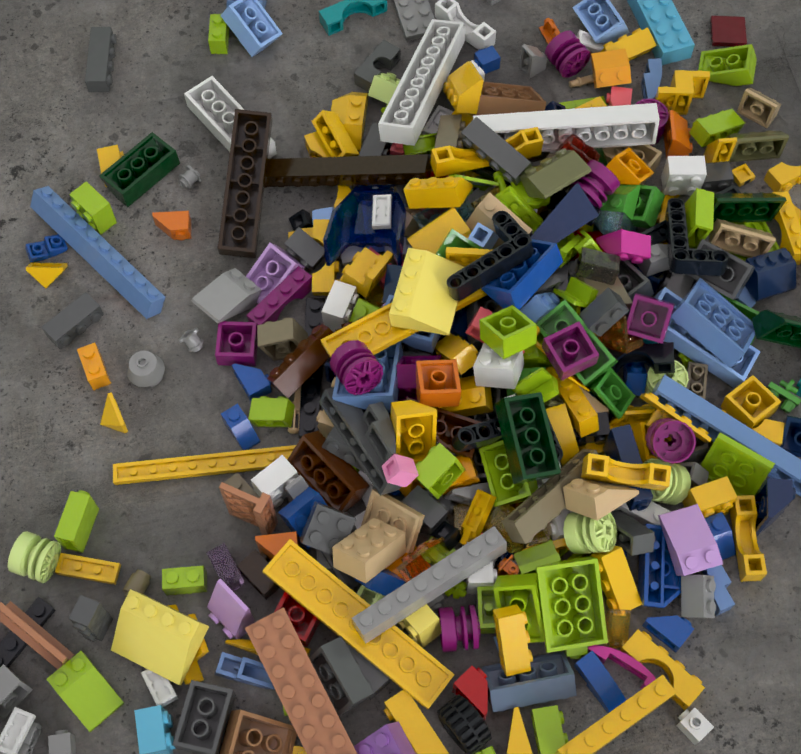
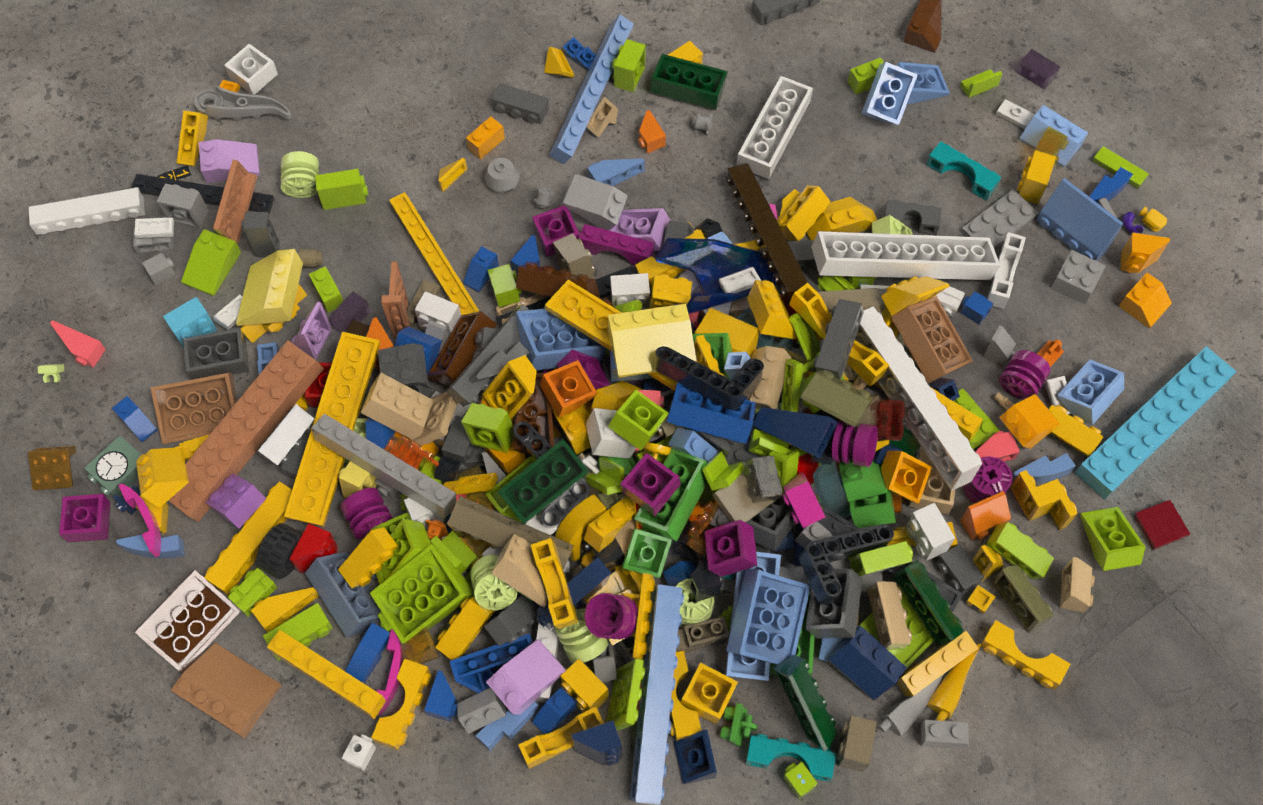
camera: 65 degrees right, 0 degrees up
(88, 568) = (309, 218): yellow plate -> none
(134, 253) = (602, 116): none -> tan slope
(197, 271) = (615, 171): none -> medium blue slope
(245, 183) = (711, 162): dark brown brick -> none
(356, 367) = (546, 314): magenta wheel -> none
(400, 470) = (468, 392): bright pink panel -> none
(604, 312) = (708, 499): dark grey brick -> none

